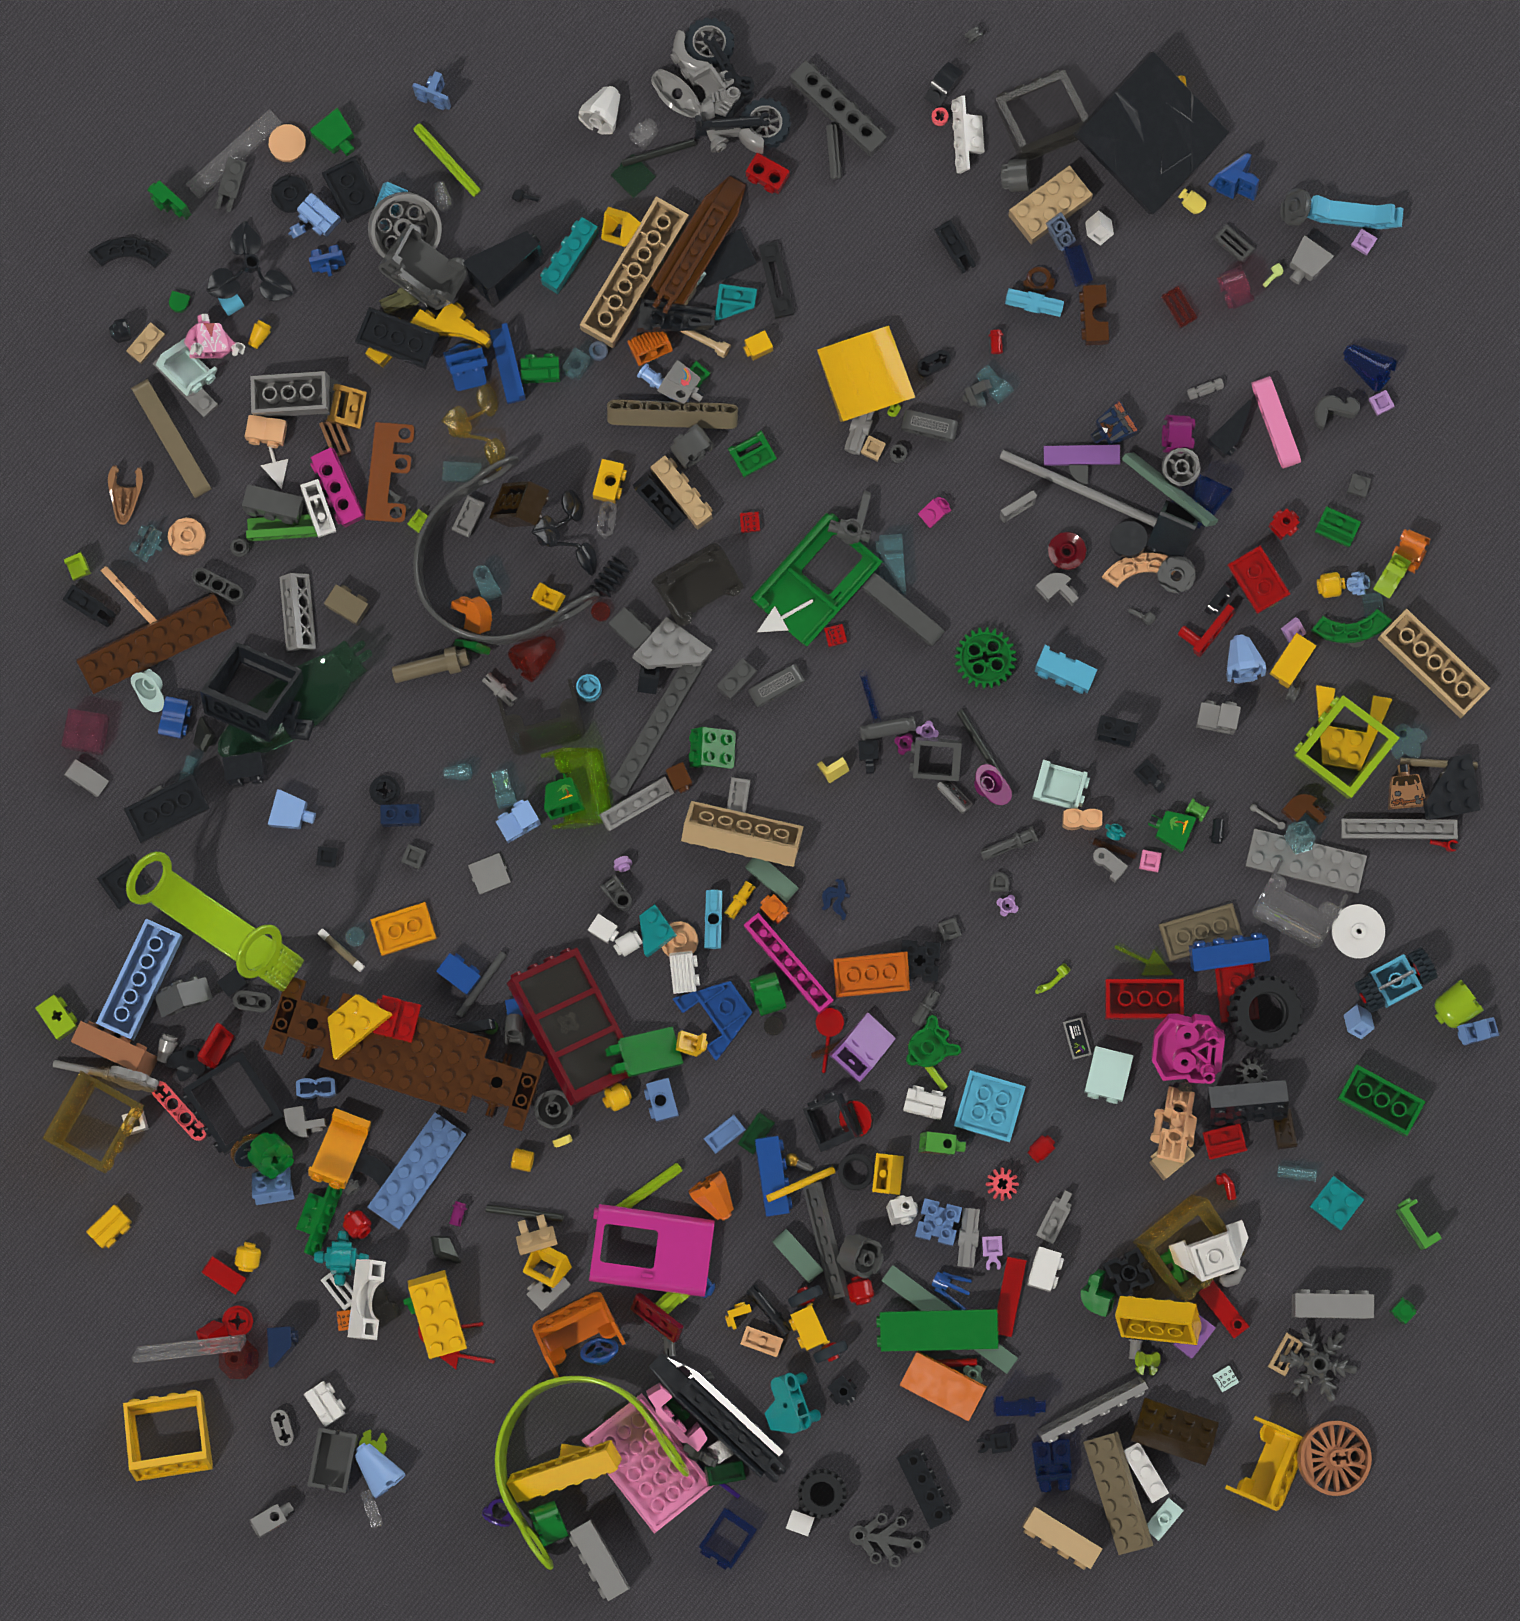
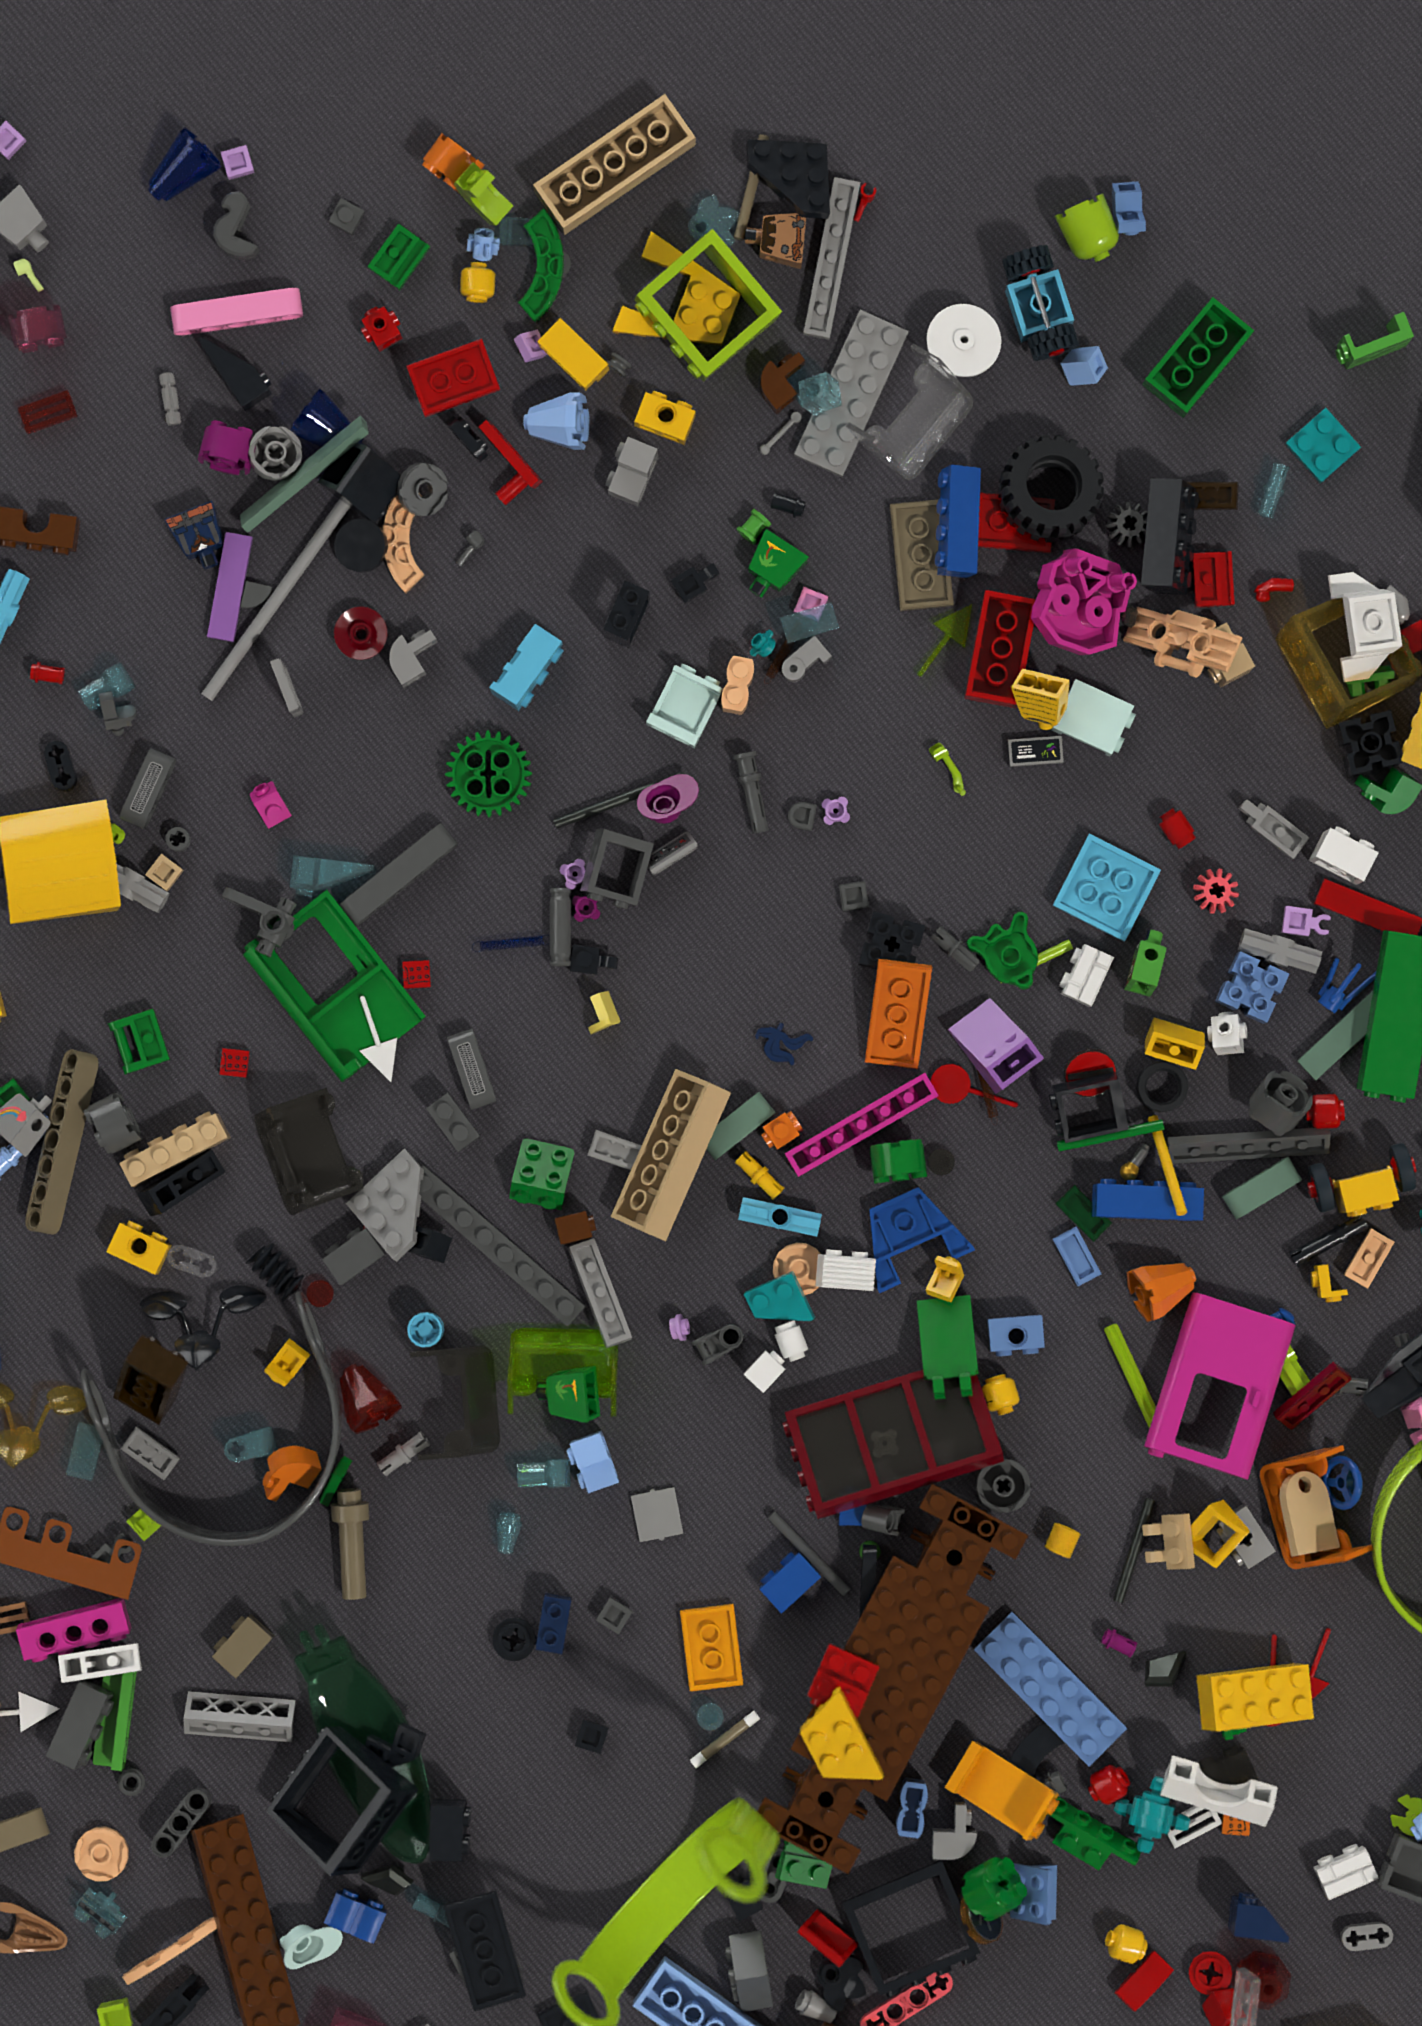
camera: 85 degrees left, 5 degrees up
(261, 1019) = (802, 1867): none -> green plate
(289, 812) = (519, 1777): light blue torso -> none
(562, 1140) = (1045, 1480): light yellow tile -> none
(571, 1329) = (1307, 1515): none -> tan tile
(820, 1155) = (1134, 1130): none -> green bar
(1114, 1031) = (1041, 697): none -> yellow torso
(1136, 861) = (809, 622): none -> clear light blue plate
(1257, 744) = (674, 430): none -> yellow brick

